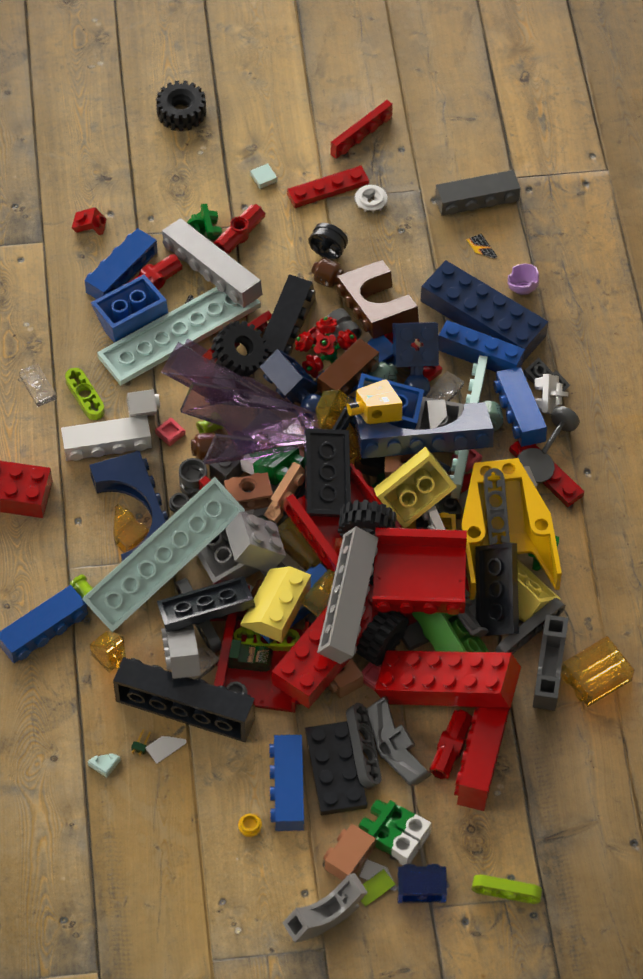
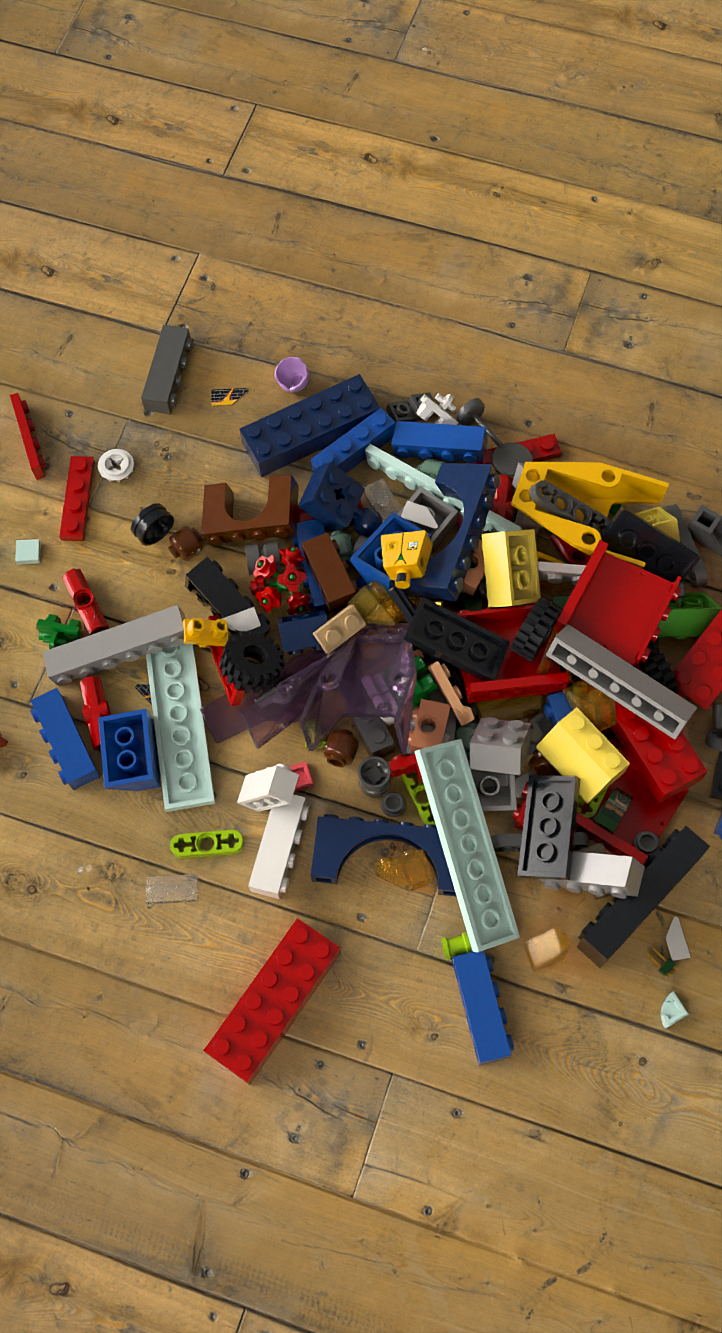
camera: 60 degrees left, 10 degrees up
(248, 307) = (205, 632): none -> yellow hips
(274, 332) = (243, 620): none -> white sticker
(297, 393) = (339, 629): none -> tan plate

